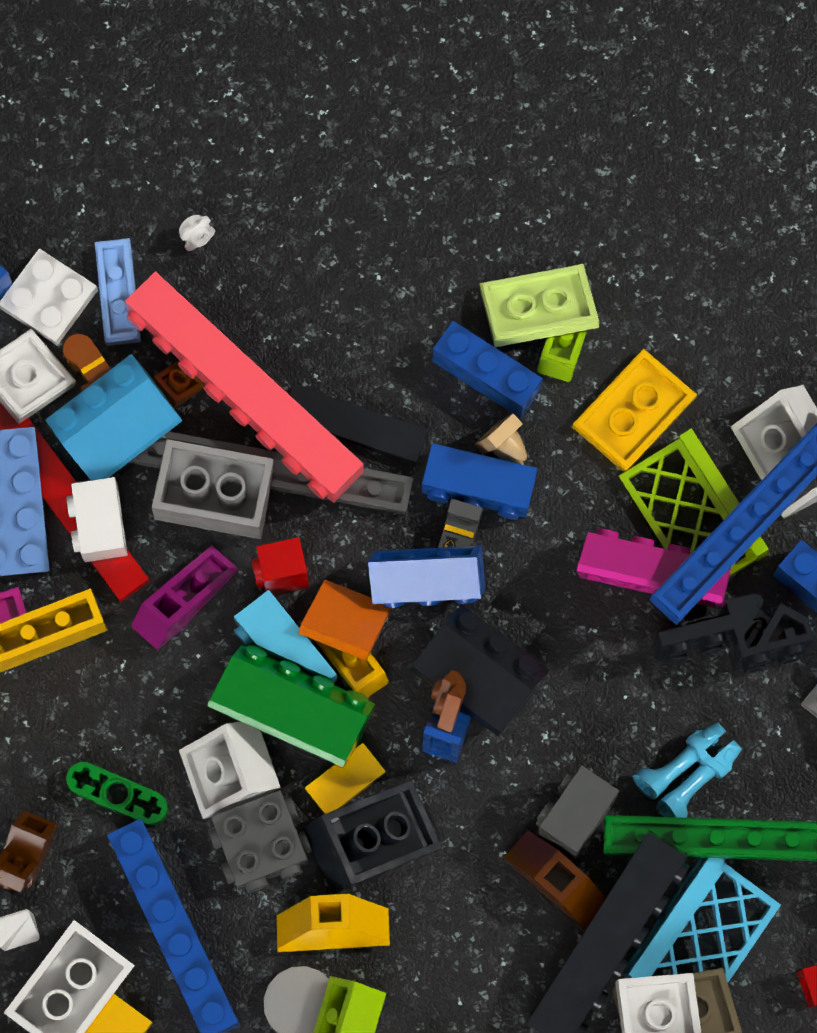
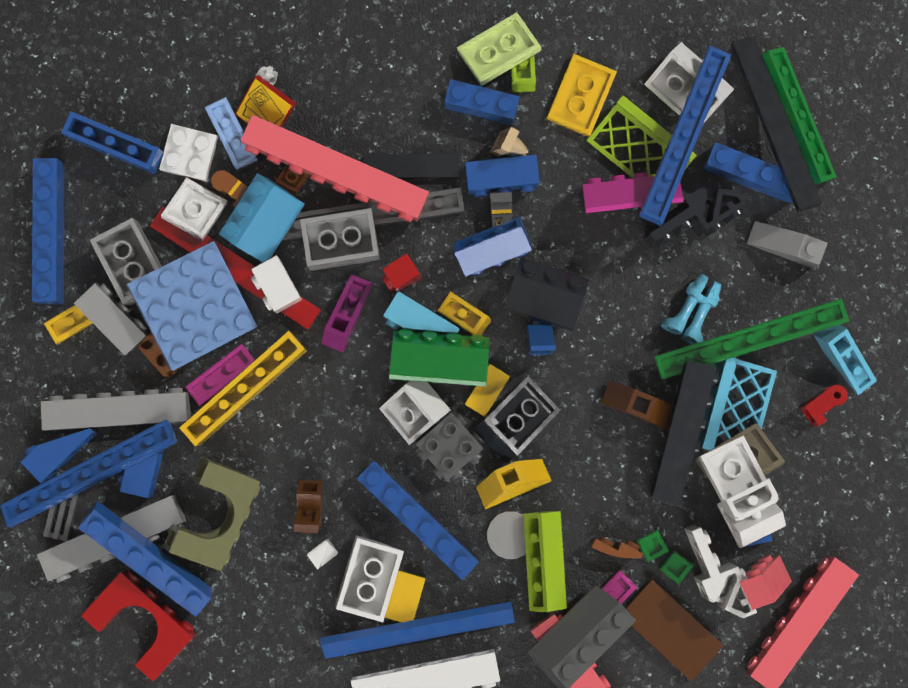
camera: 20 degrees left, 10 degrees up
(96, 774) = (333, 453): green beam -> none
(182, 264) = (266, 103): none -> yellow tile
(344, 620) = (451, 292): orange tile -> none
(448, 697) = (537, 322): dark orange slope -> none
(577, 812) = (637, 361): dark grey brick -> none

